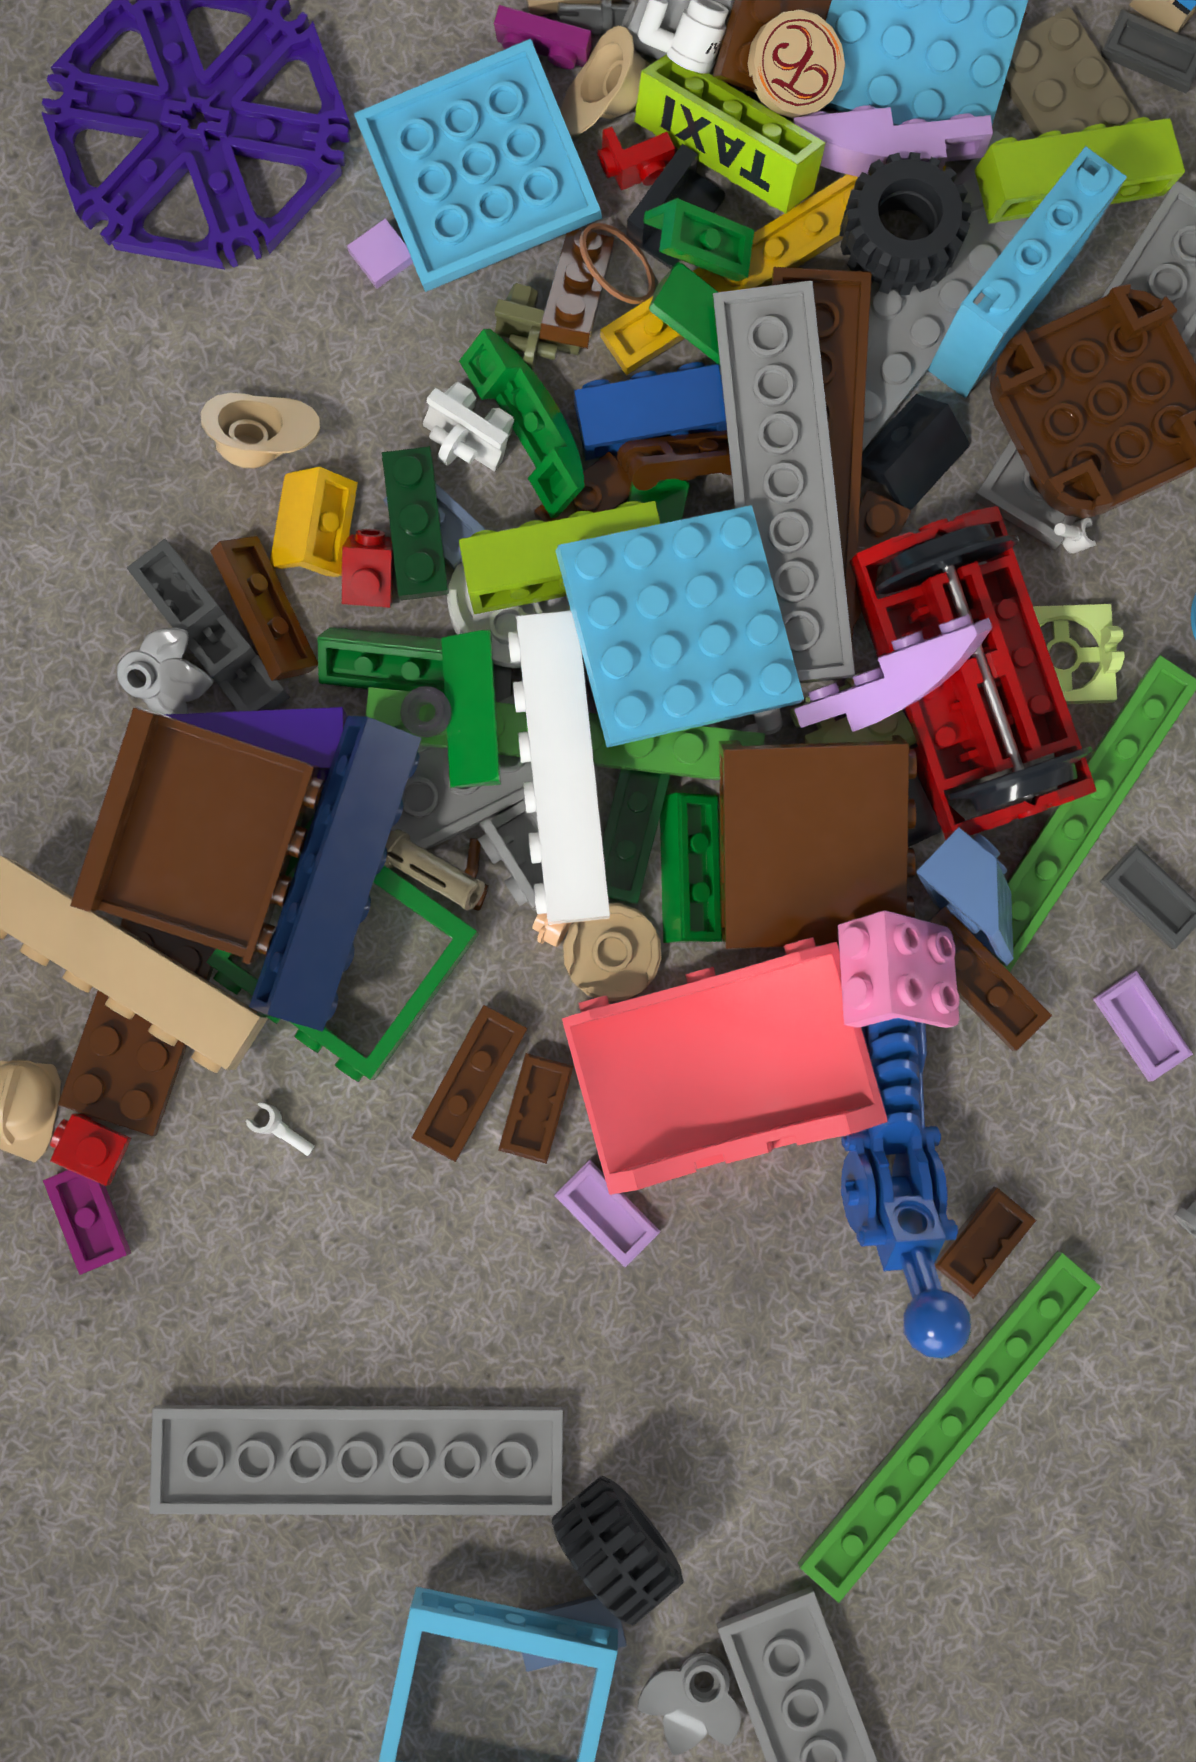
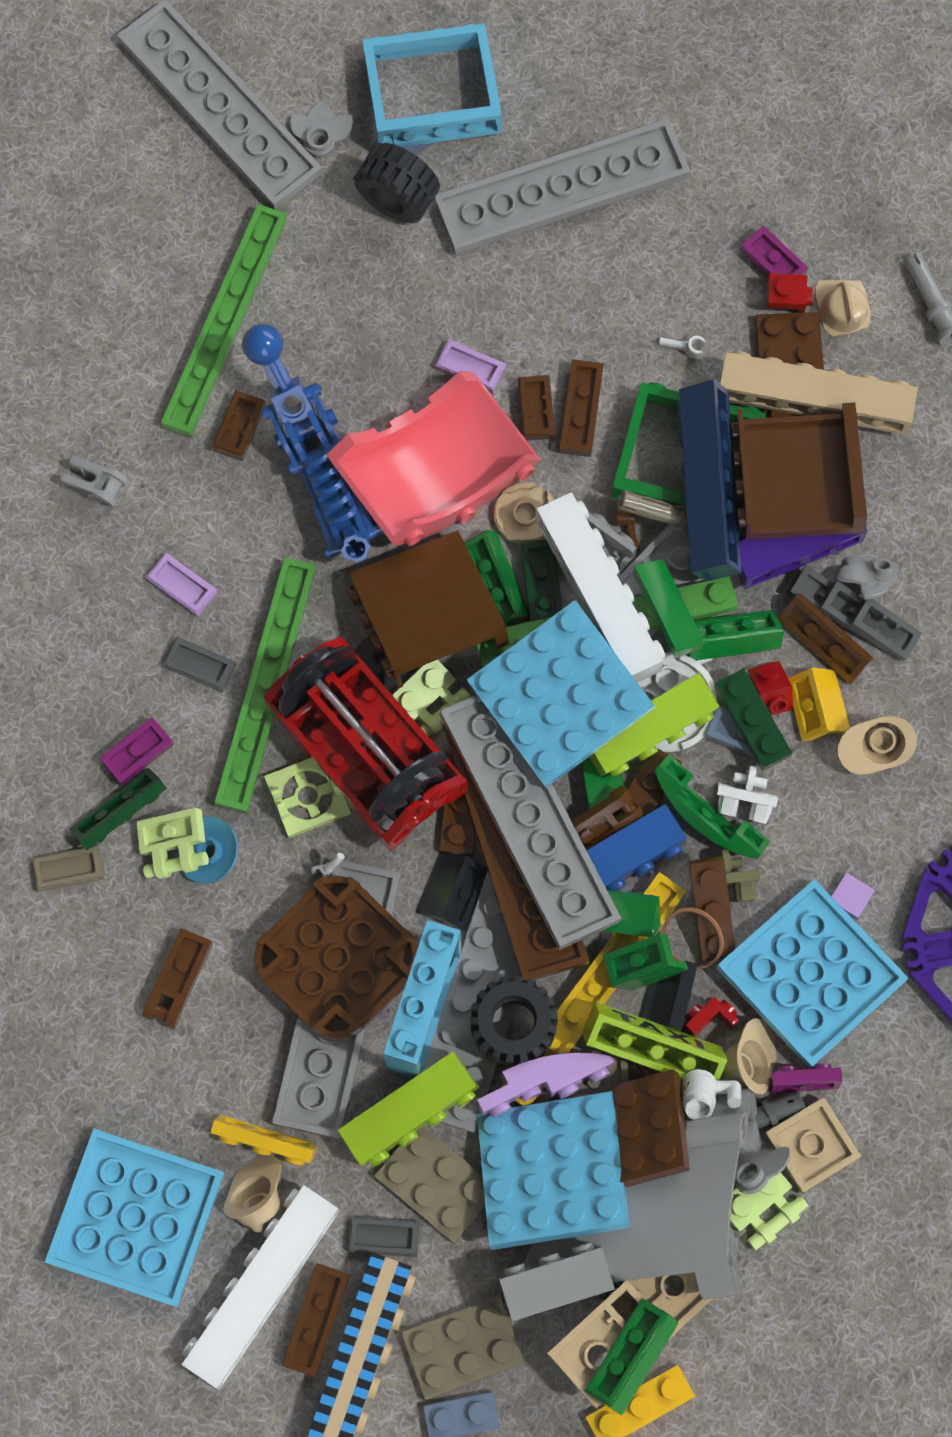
camera: 165 degrees right, 10 degrees down
(410, 711) = (696, 587): plate -> none
(796, 63) = (626, 1092): tan tile -> none
(897, 970) = (348, 538): bright pink bracket -> none
(903, 678) = (414, 701): lavender slope -> none
(973, 888) = (317, 606): medium blue slope -> none
(991, 988) = (296, 565): reddish brown plate -> none

